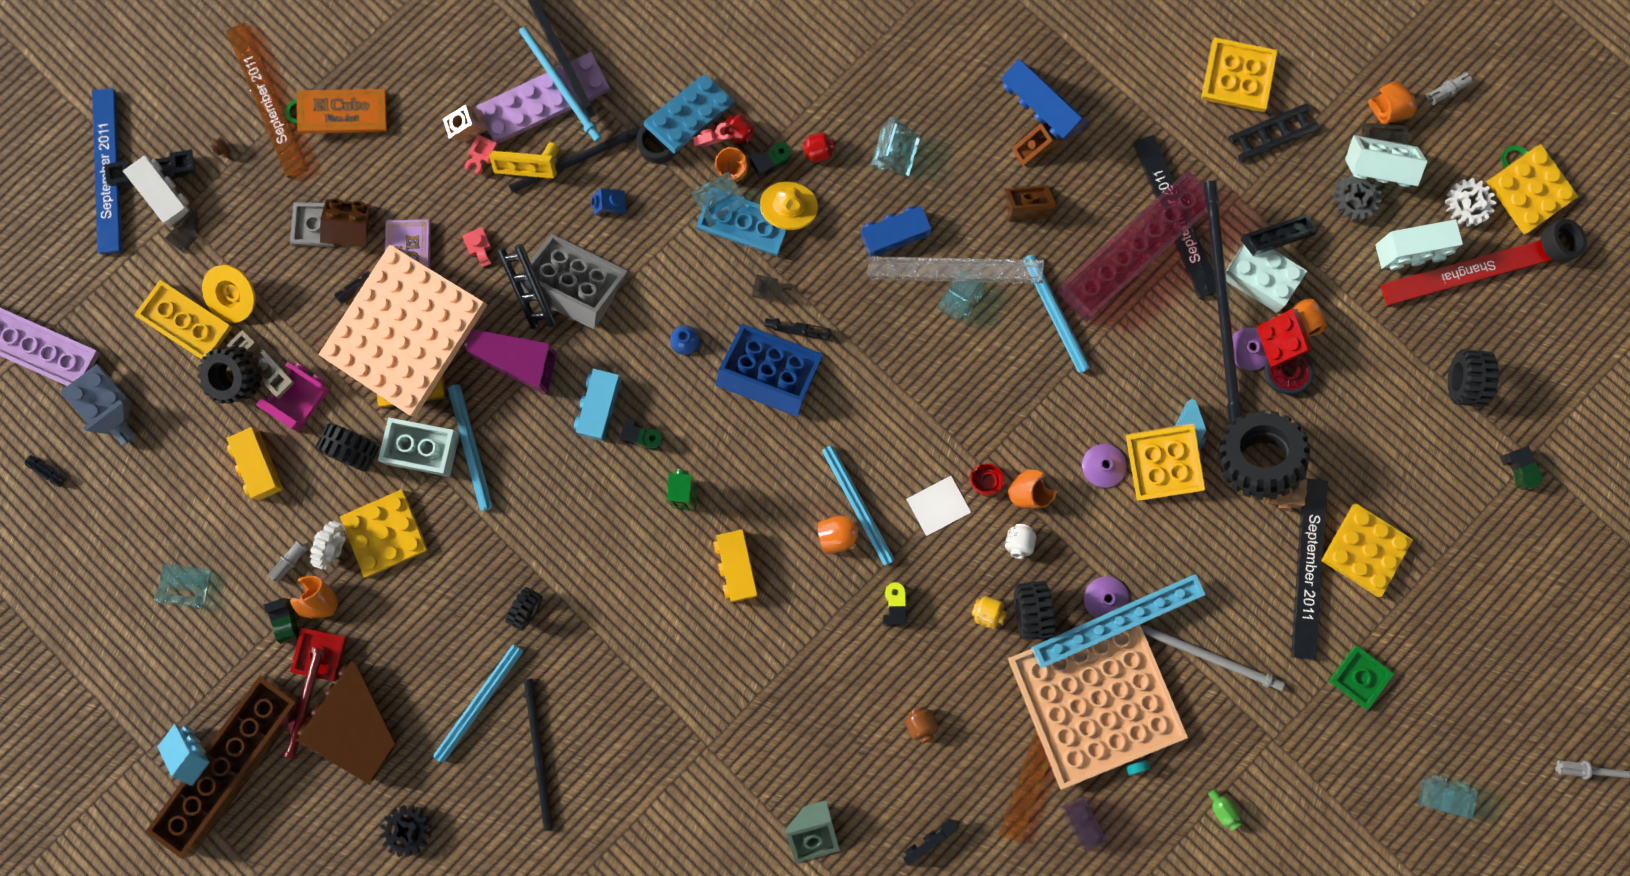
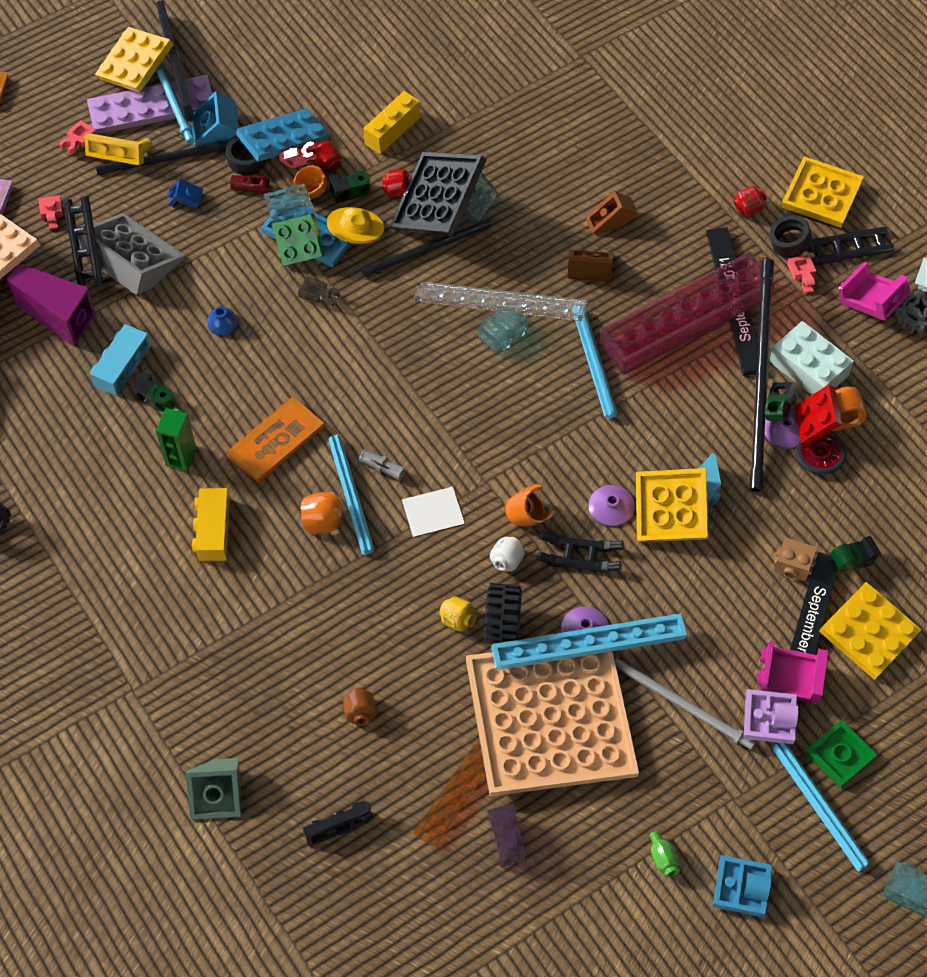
camera: 10 degrees right, 20 degrees down
(465, 123) = (71, 108): medium nougat head -> none
(513, 51) = (134, 59): none -> yellow plate
(615, 108) = (215, 120): none -> dark azure slope
(665, 176) = (251, 184): none -> dark red bar
(738, 237) = (298, 239): none -> green plate
(768, 370) = (294, 359): blue slope -> none
(771, 460) = (275, 439): none -> orange tile
(795, 76) = (392, 122): none -> yellow brick
(798, 328) = (335, 330): black piece -> none
(820, 248) = (376, 267): none -> black bar
(867, 161) = (438, 193): none -> black plate
(879, 467) = (394, 470): none -> light grey pin
(895, 231) = (453, 264): blue brick -> none
(896, 605) = (364, 591): leg -> none
(987, 479) = (486, 492): red hair -> none
(1044, 100) = (622, 172): blue slope -> none
(1097, 514) = (592, 546): none -> black piece
(1138, 767) = (579, 793): teal tile -> none
(1170, 100) = (749, 201): none -> red head
(1219, 119) = (794, 248): none -> black tyre
(1236, 170) = (803, 269): none -> coral plate
(1244, 328) = (778, 404): none -> dark green leg
(1264, 429) = (779, 531): black tyre -> none
(1279, 235) = (832, 326): black tile -> none
(1296, 659) = (770, 716): none -> lavender plate
(1299, 825) = (742, 886): none -> dark azure plate
(1308, 611) = (793, 673): none -> dark pink panel
(1310, 186) = (873, 292): none -> dark pink panel
(1342, 476) = (855, 554): none -> leg
(1352, 731) = (821, 806): none -> medium azure axle

